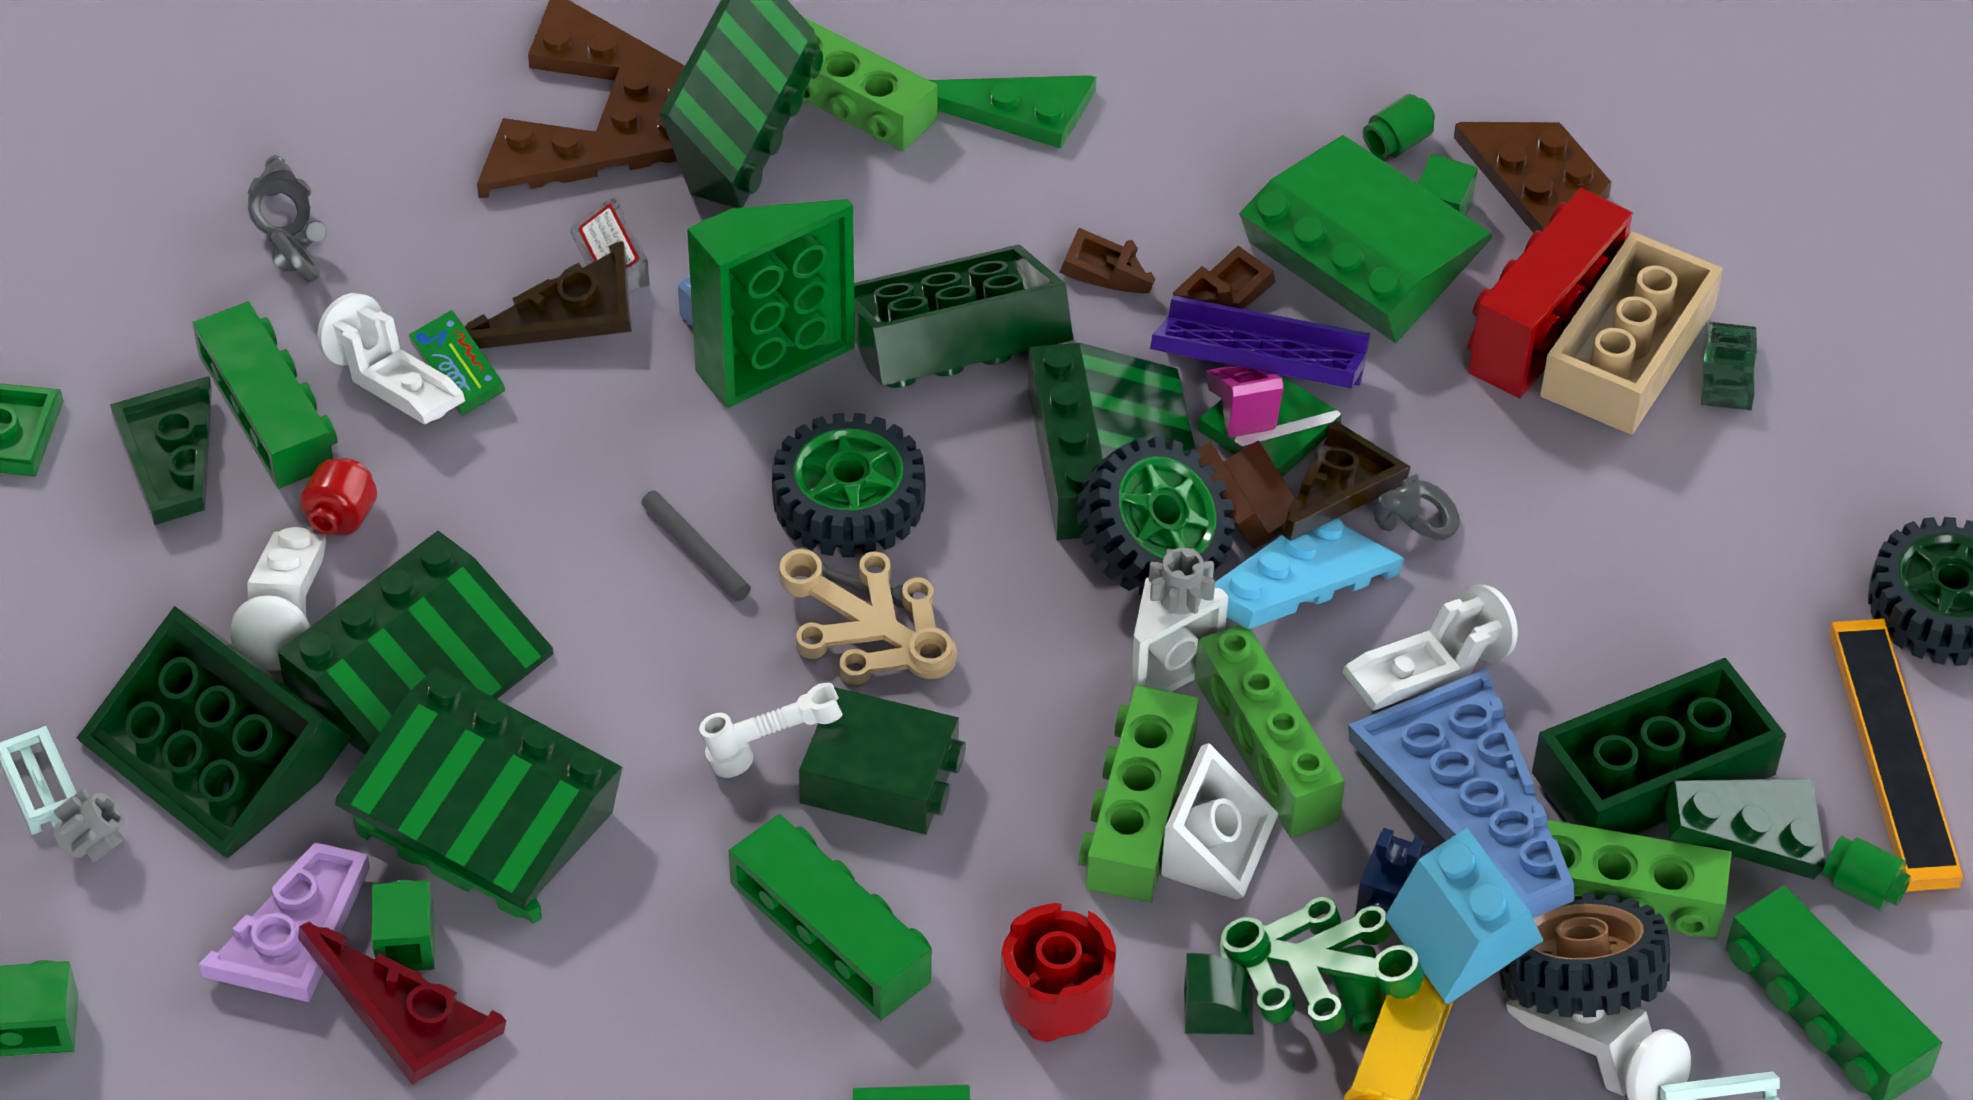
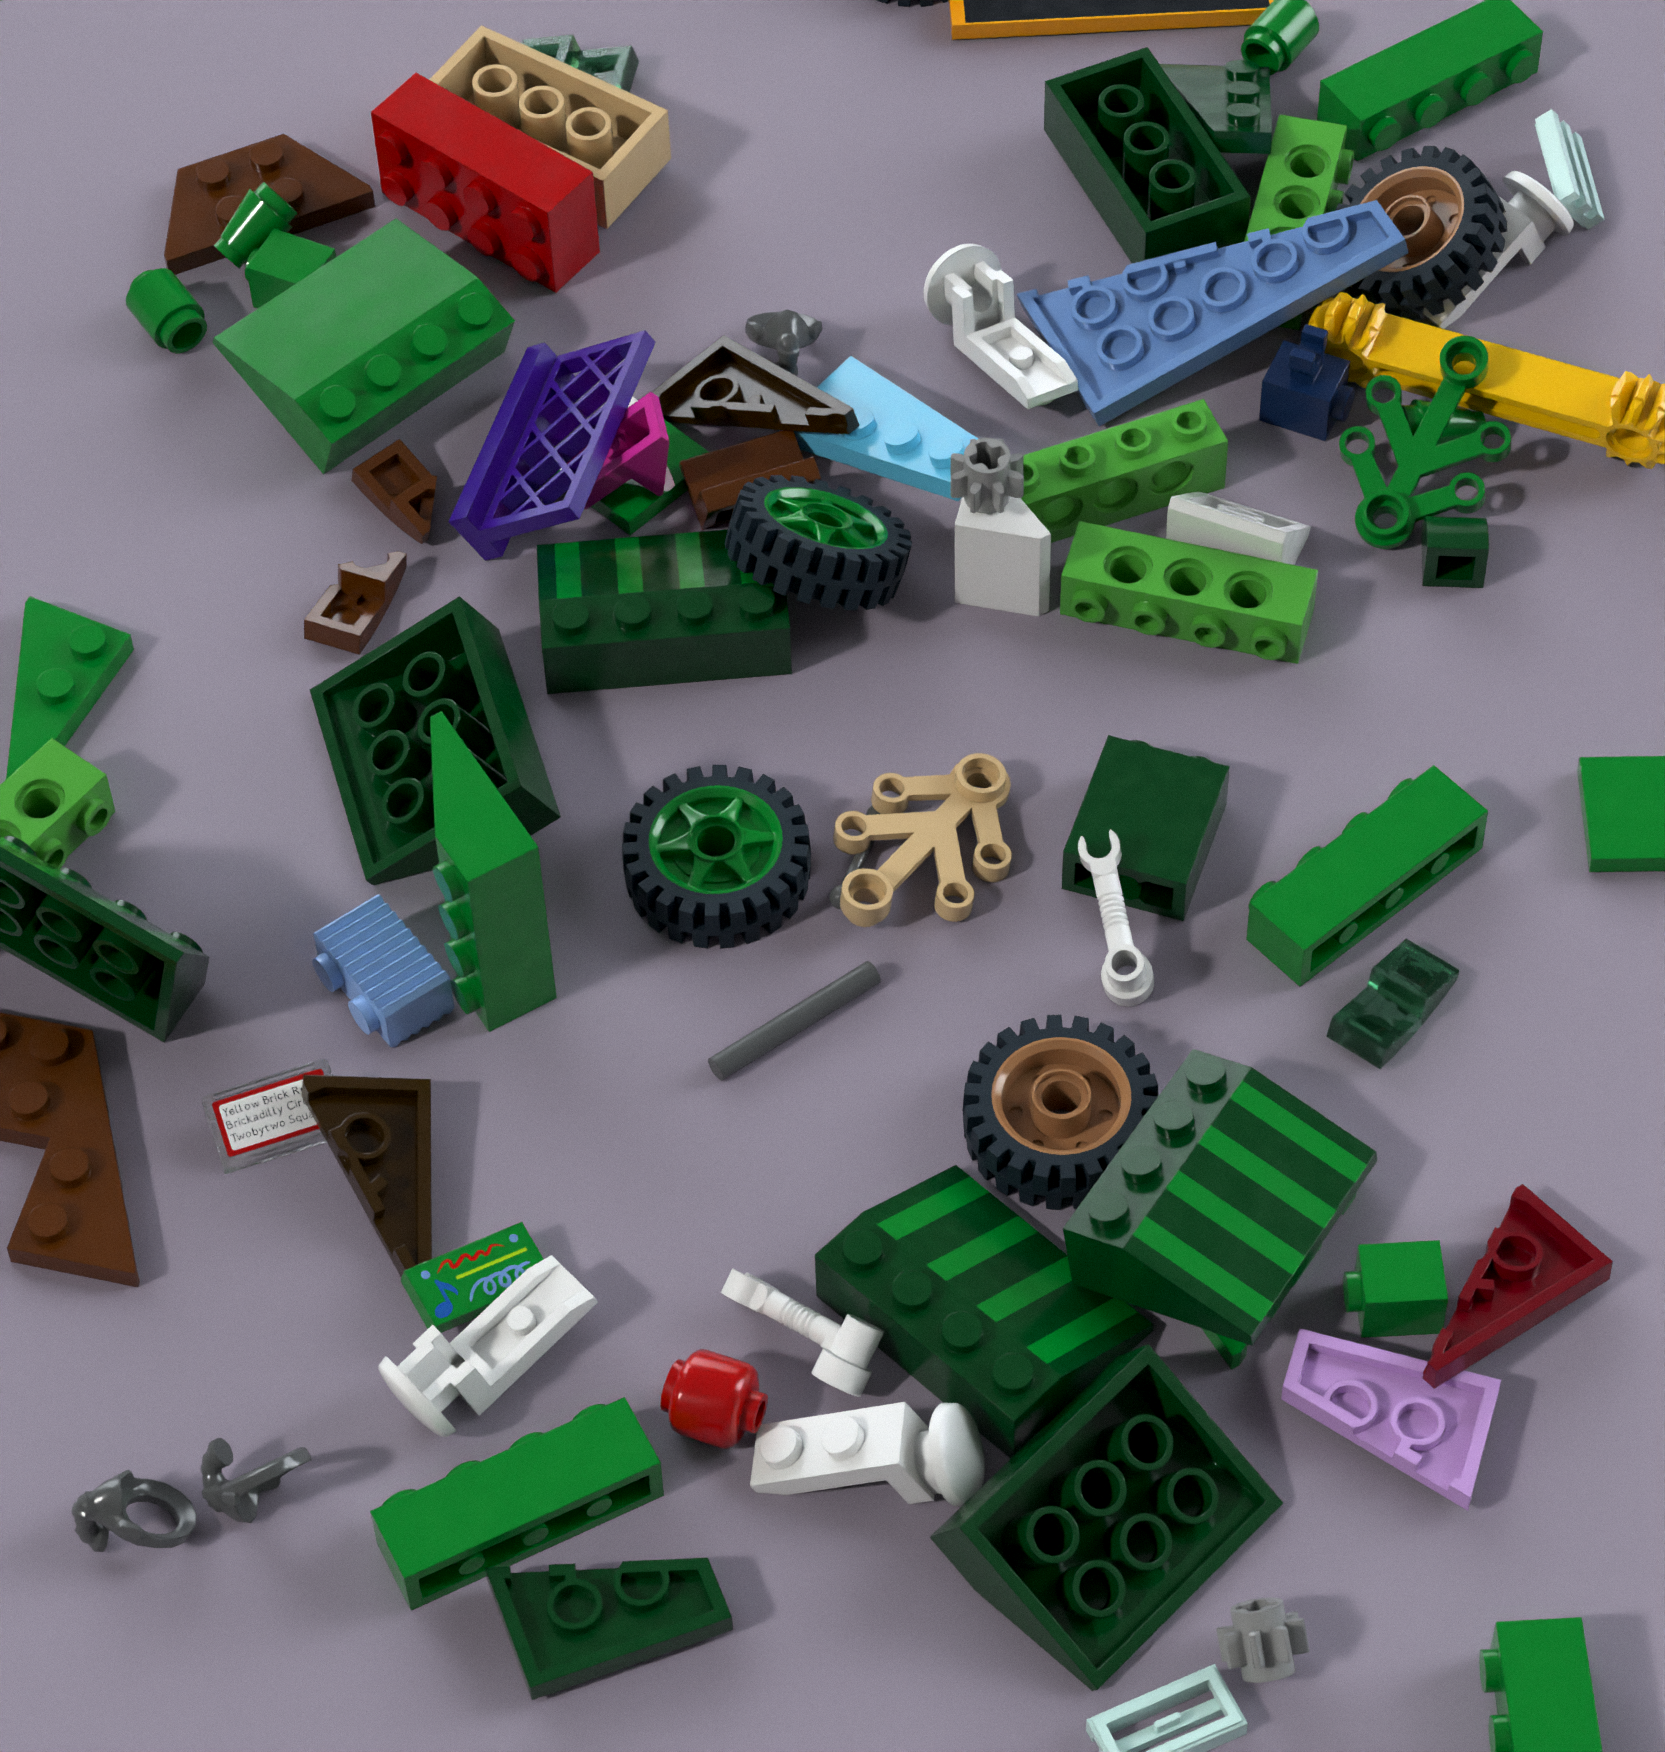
camera: 85 degrees left, 5 degrees up
(358, 569) = (845, 1346): none -> white brick
(598, 694) = (1047, 1070): none -> wheel
(697, 940) = (1394, 1004): none -> clear green slope
(1057, 971) = (1445, 665): red brick -> none
(1461, 917) = (1417, 290): medium azure slope -> none
(1497, 162) = (253, 223): none -> green cone

